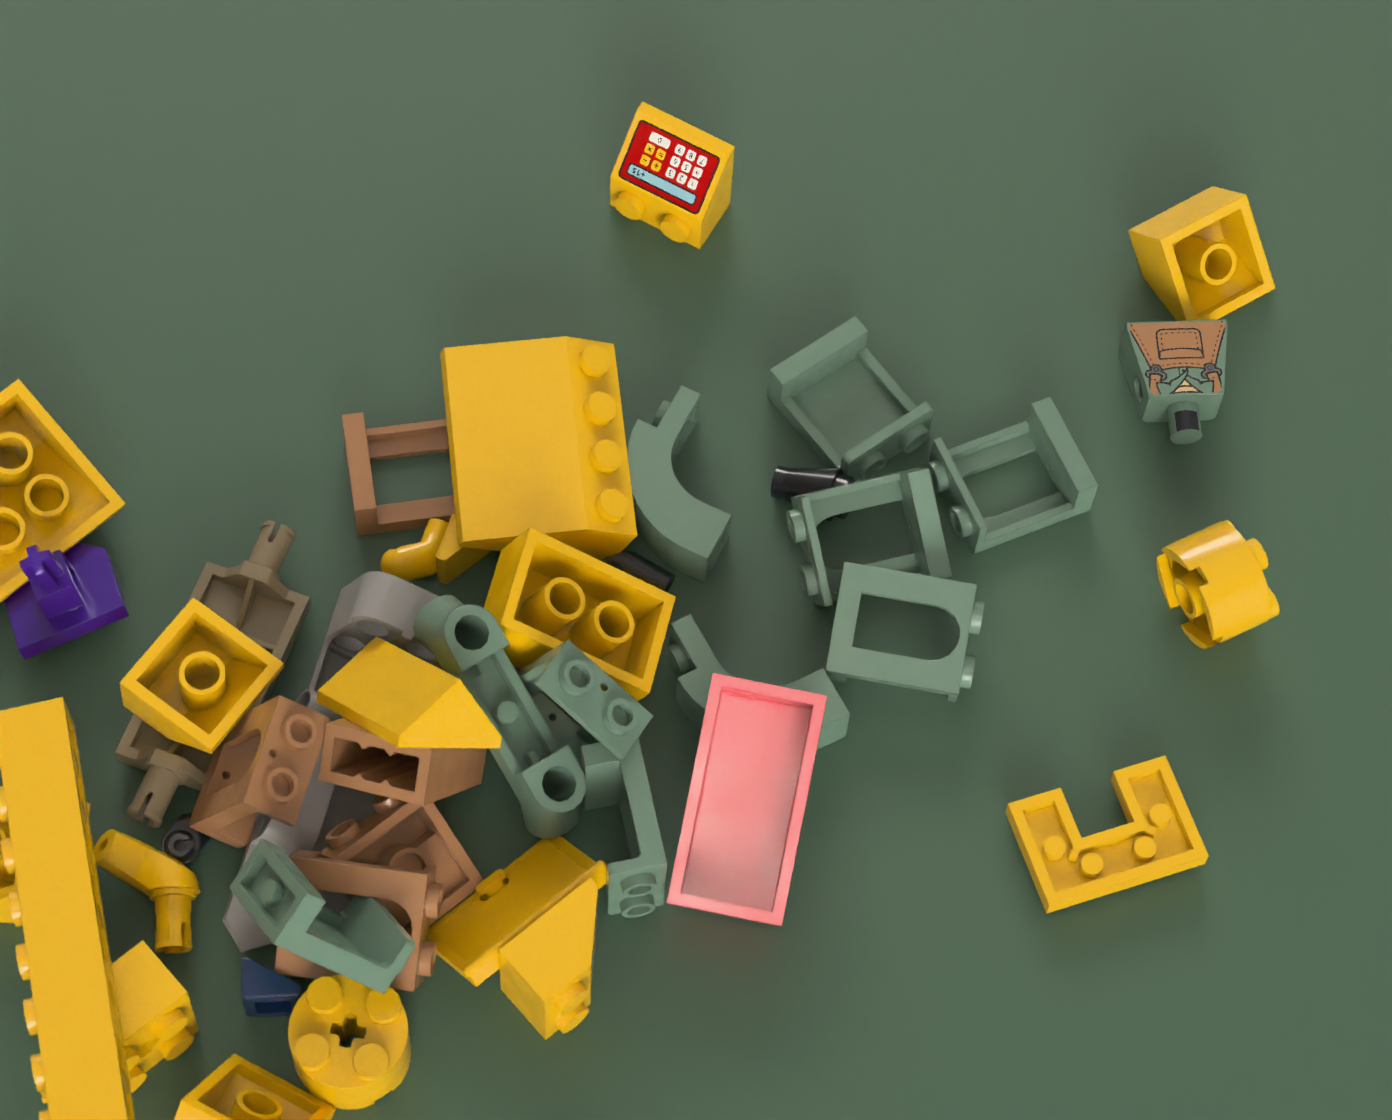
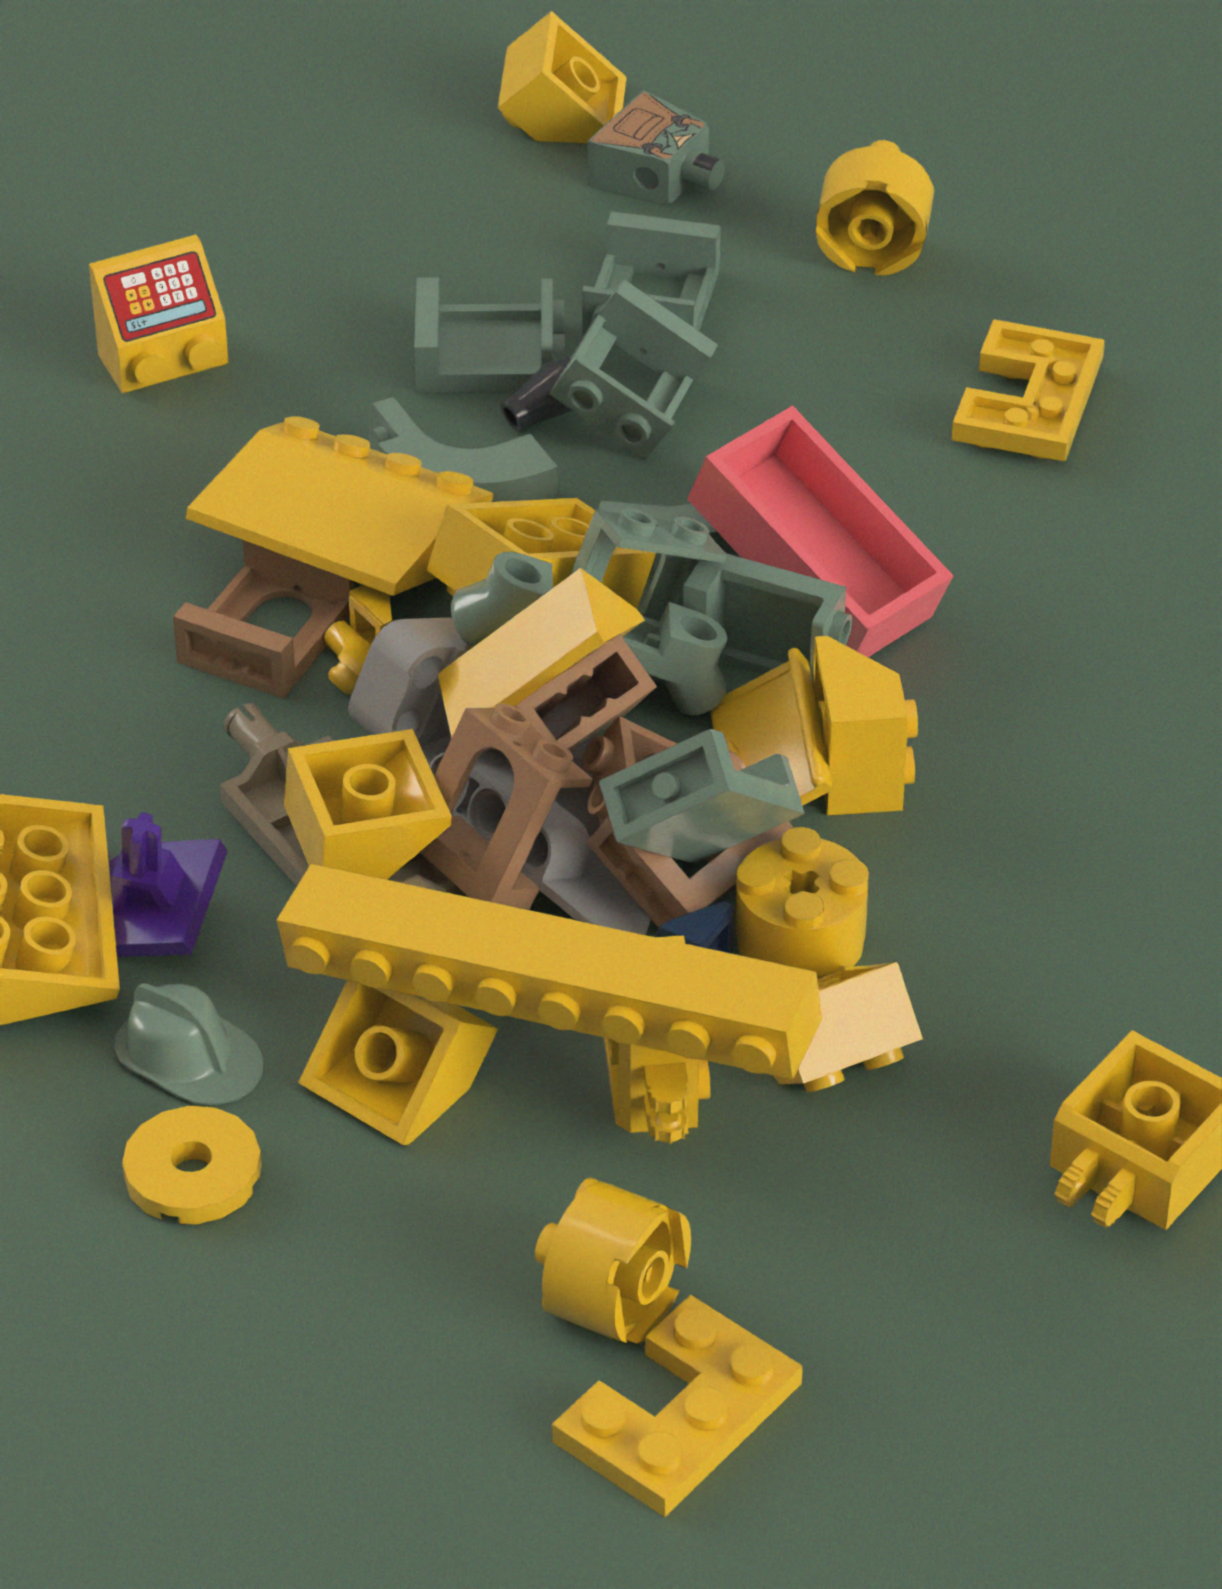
camera: 50 degrees left, 20 degrees down
(935, 676) = (703, 428): sand green panel -> none

